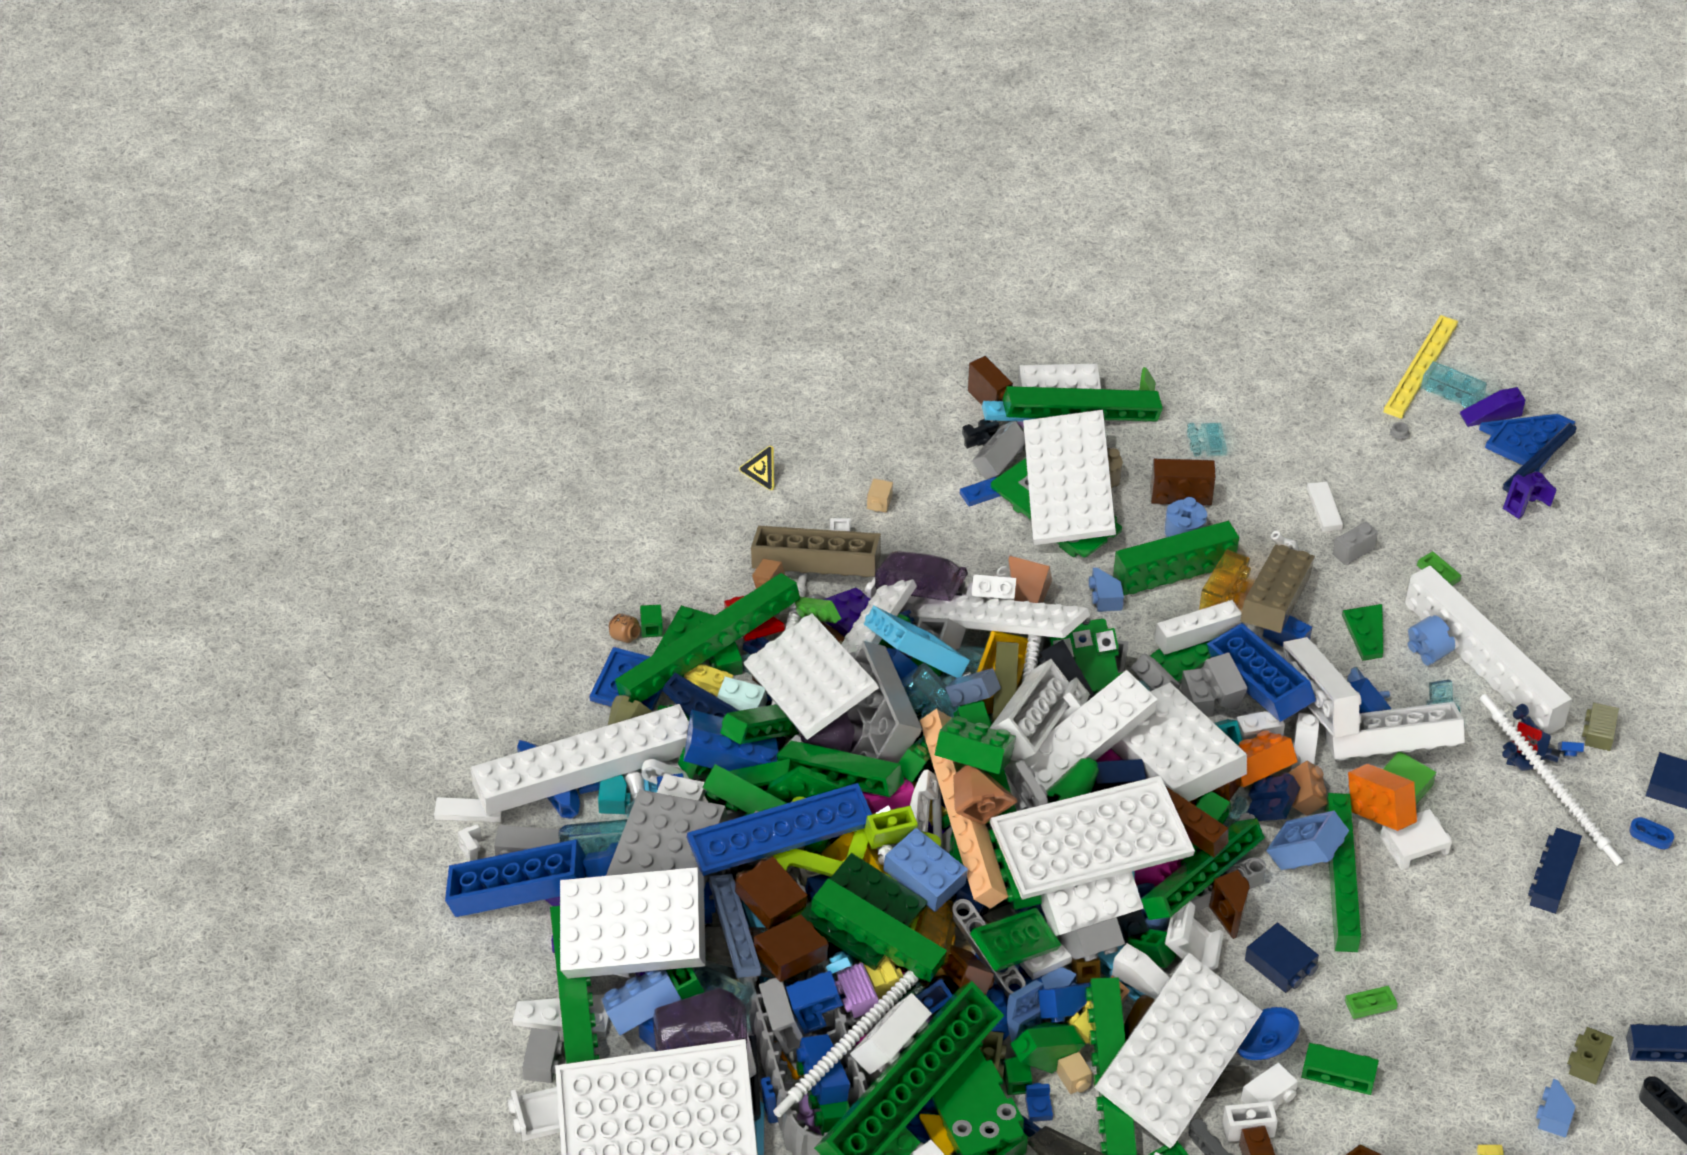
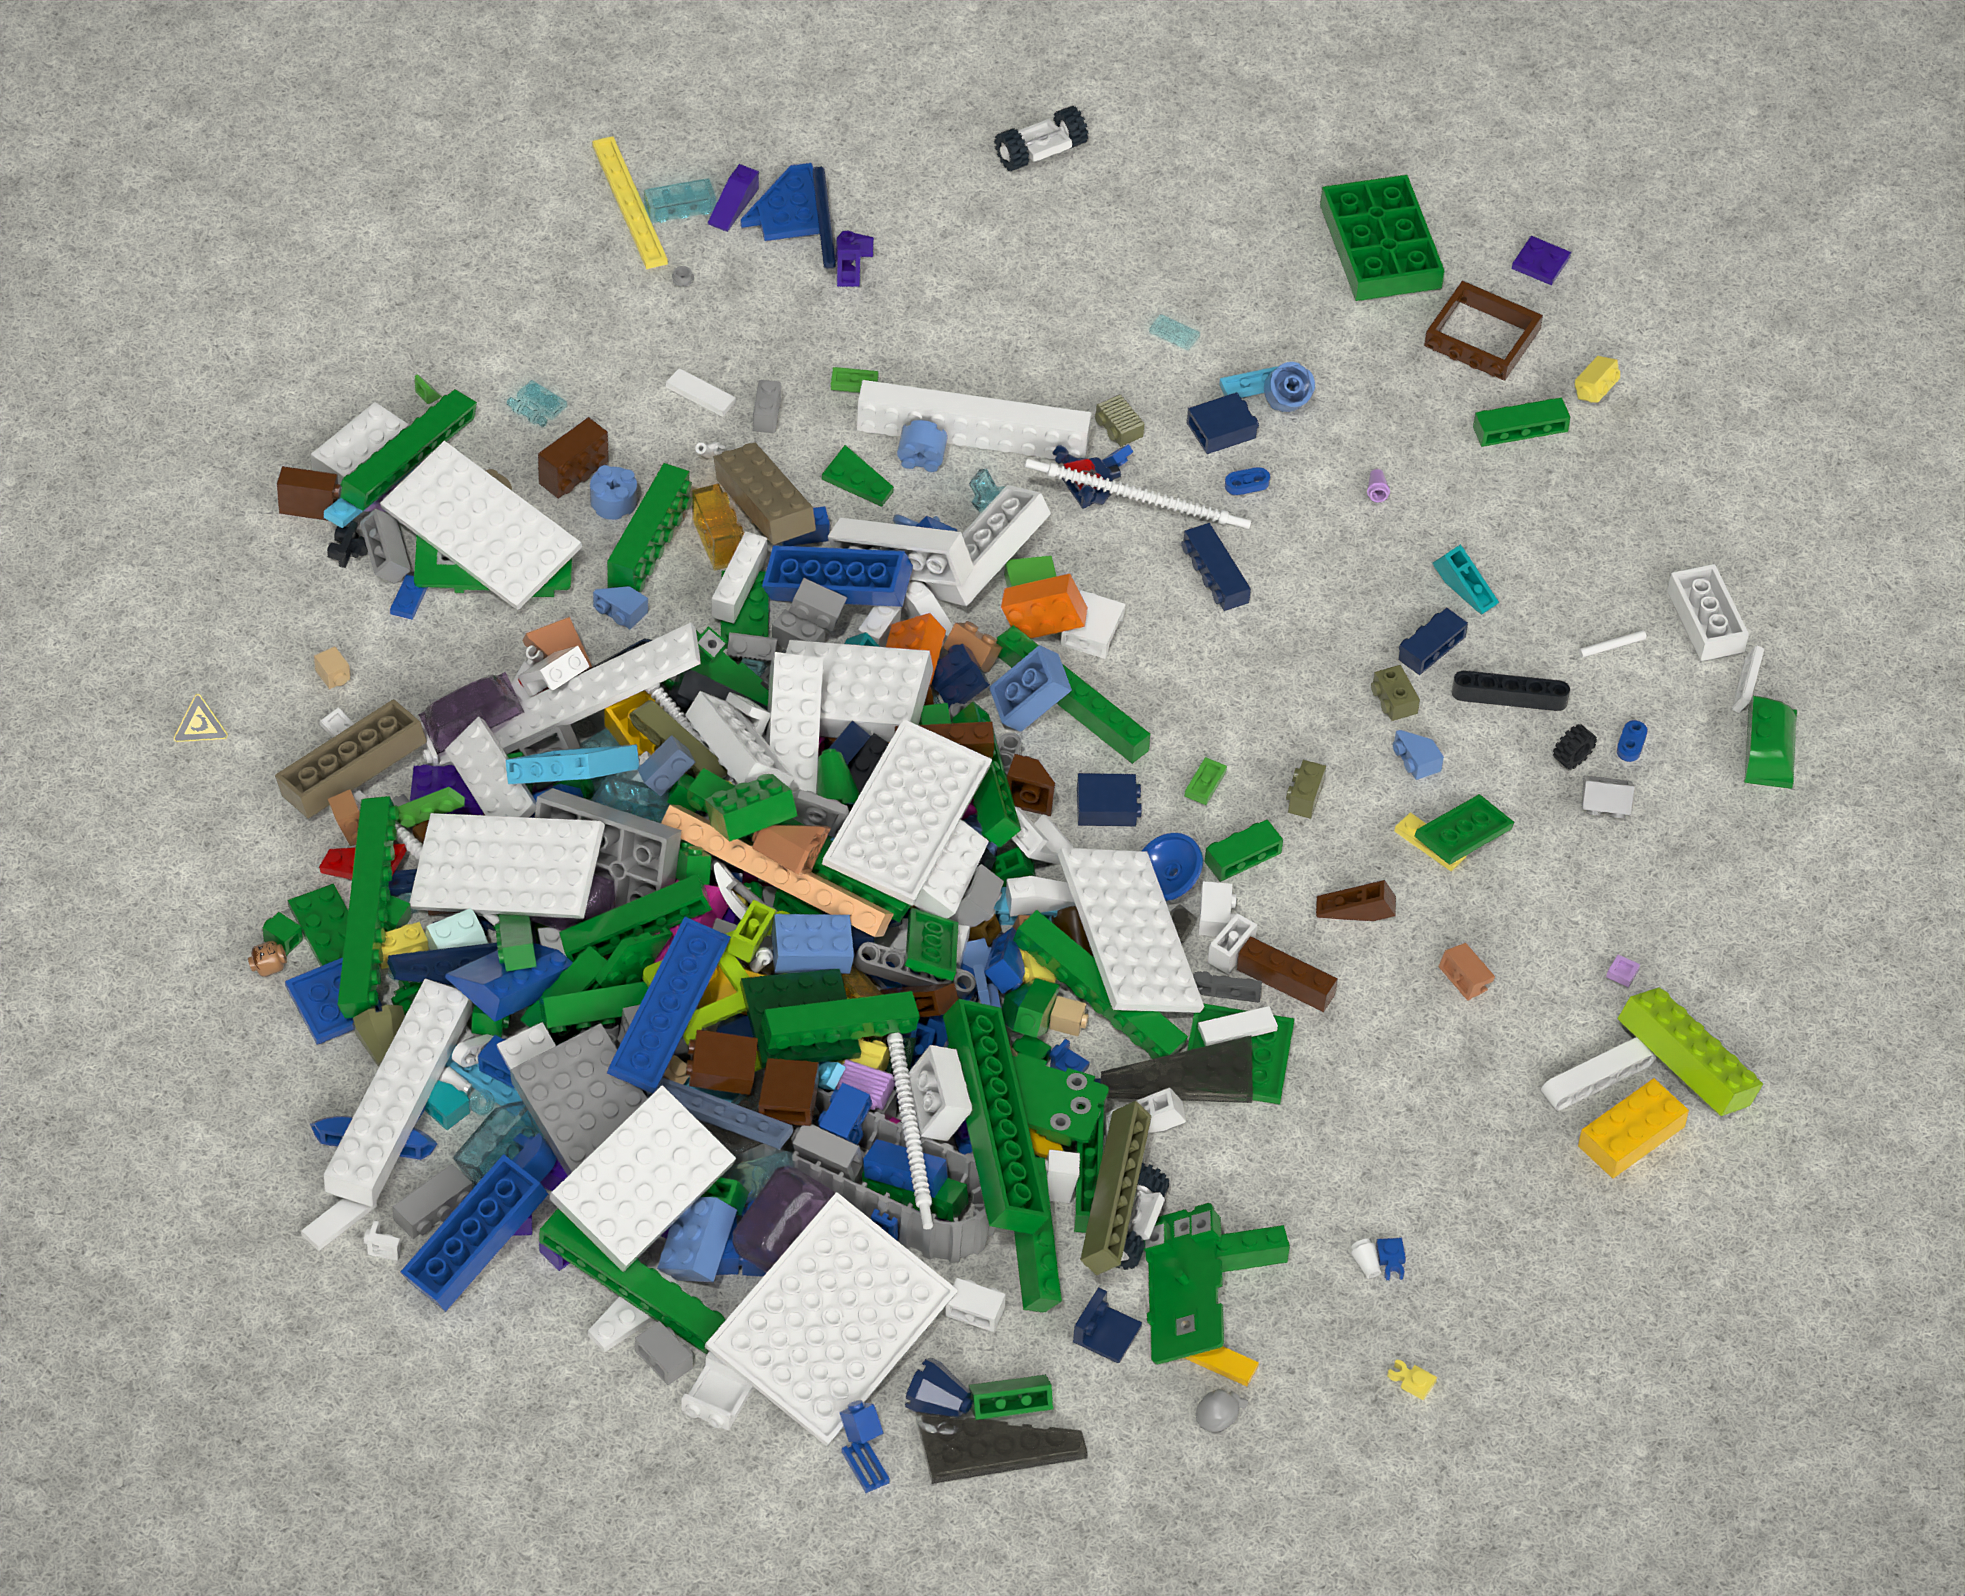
camera: 50 degrees left, 5 degrees up
(1438, 1065) = (1307, 788): none -> olive brick

